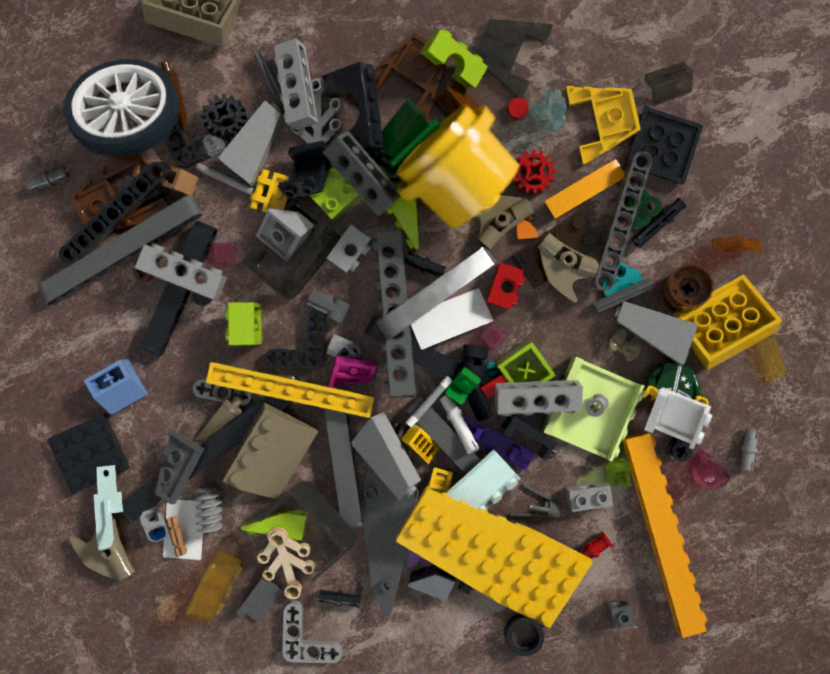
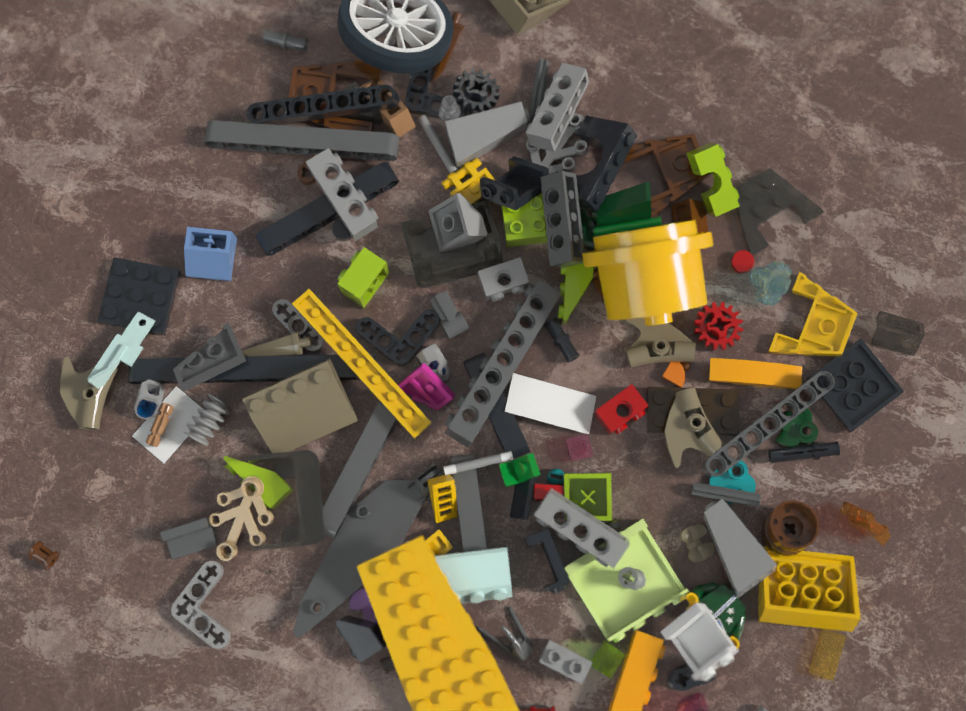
camera: 30 degrees right, 10 degrees down
(214, 586) = (159, 494): clear yellow slope -> none
(225, 252) = (390, 206): clear pink tile -> none
(339, 598) = (263, 590): black pin -> none
(386, 456) = (403, 484): light grey slope -> none
(436, 292) = (555, 368): beam -> none
(455, 416) = (492, 495): white pin -> none
(472, 352) = (552, 450): black wheel -> none
(493, 440) = (524, 574): dark purple hinge -> none

